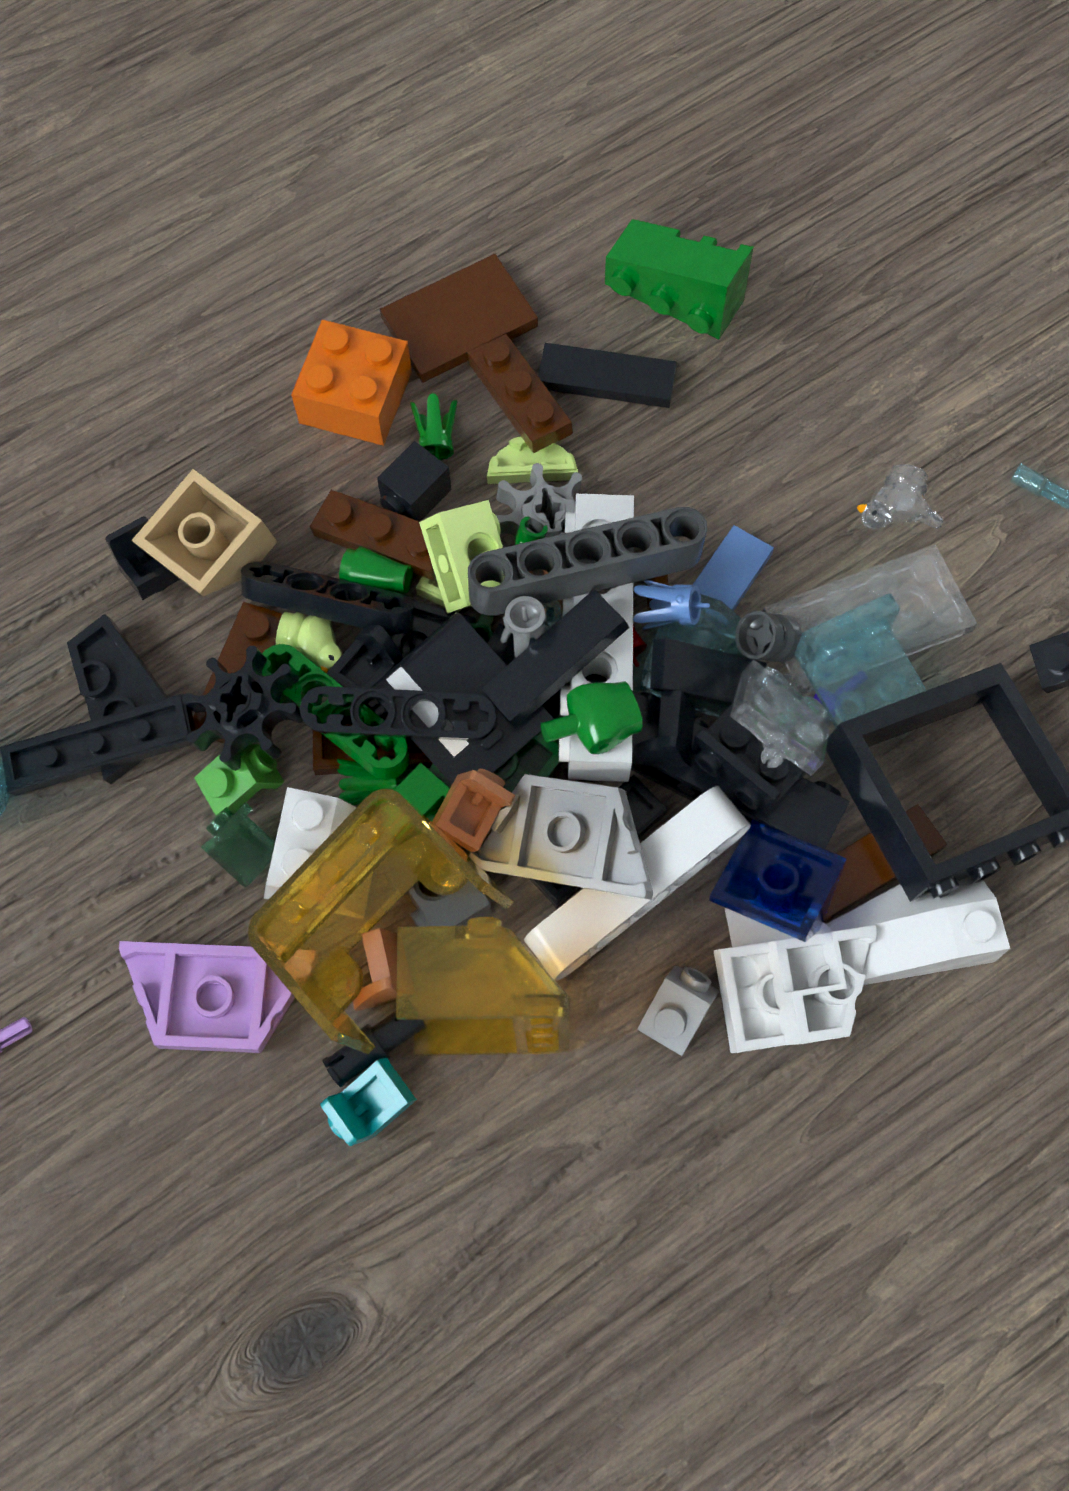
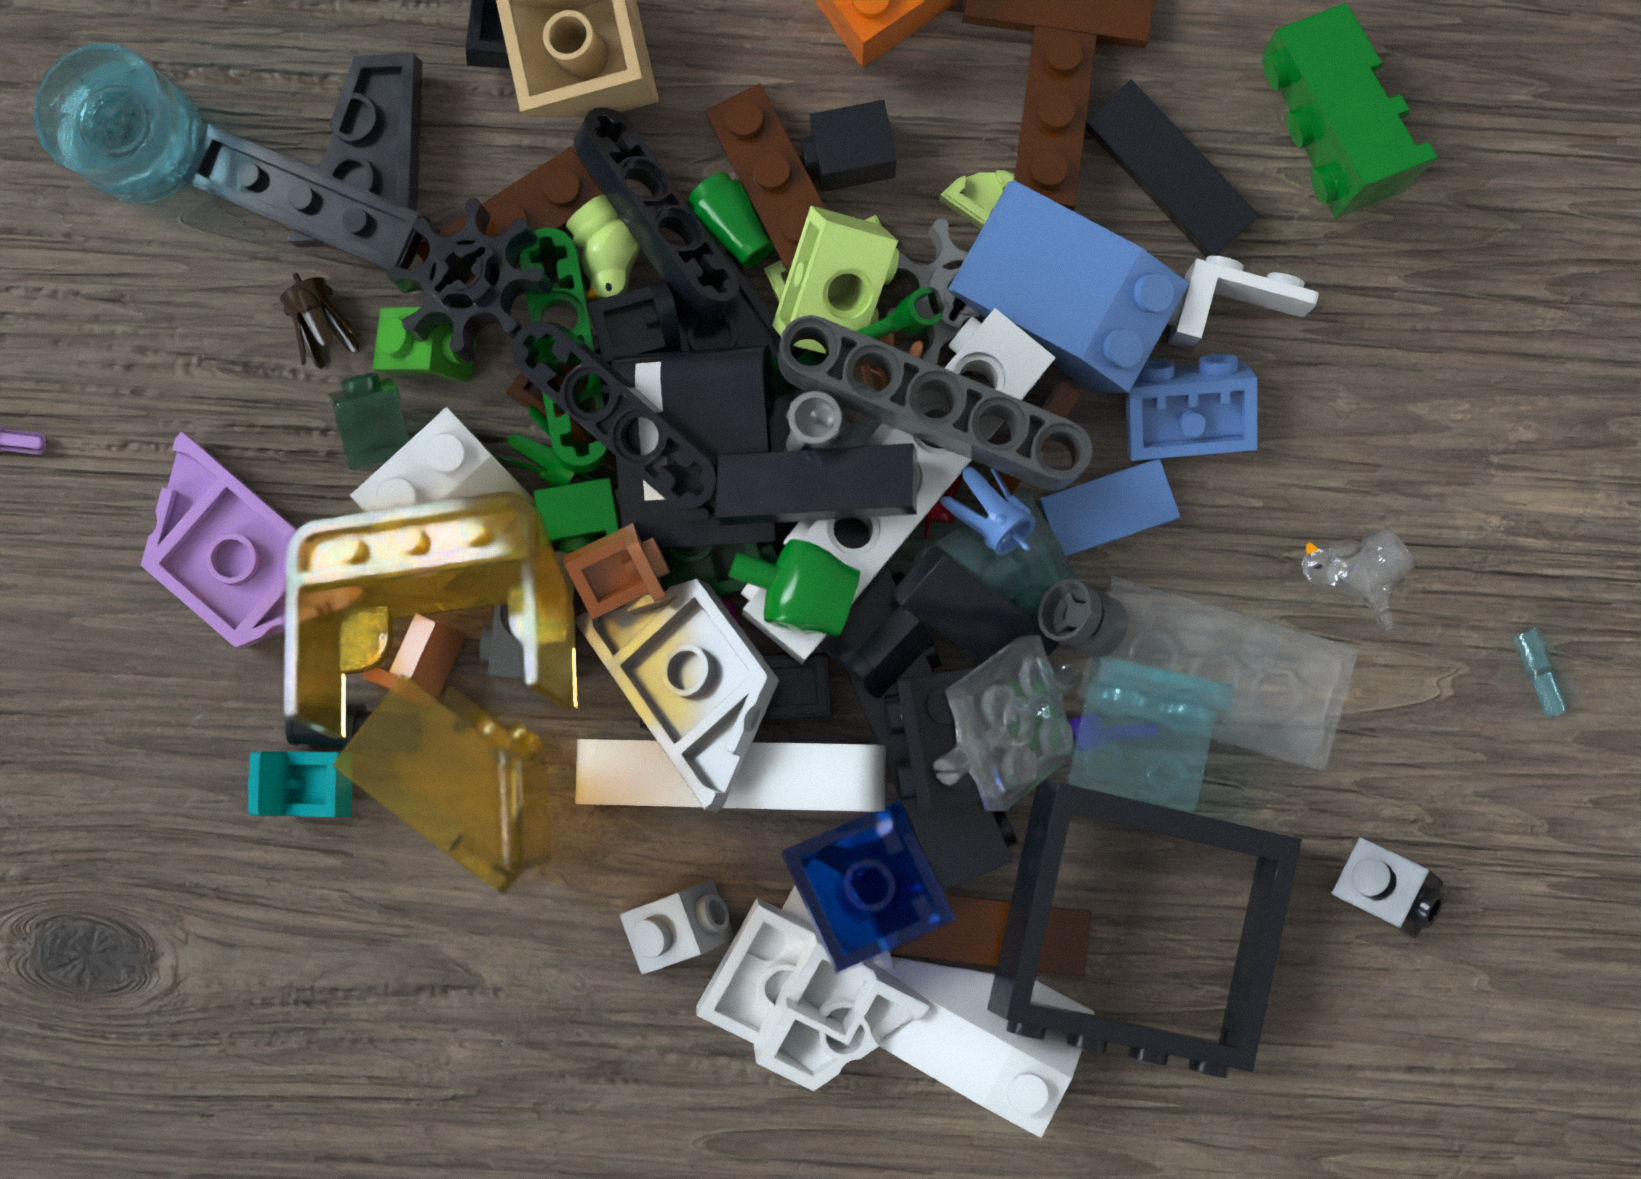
camera: 40 degrees right, 15 degrees up
(146, 803) = (314, 315): none -> dark brown piece
(434, 434) = (914, 106): green piece -> none
(607, 455) = (1070, 288): none -> medium blue slope
(687, 405) = (1227, 278): none -> white bracket
(729, 485) = (1192, 408): none -> medium blue bracket

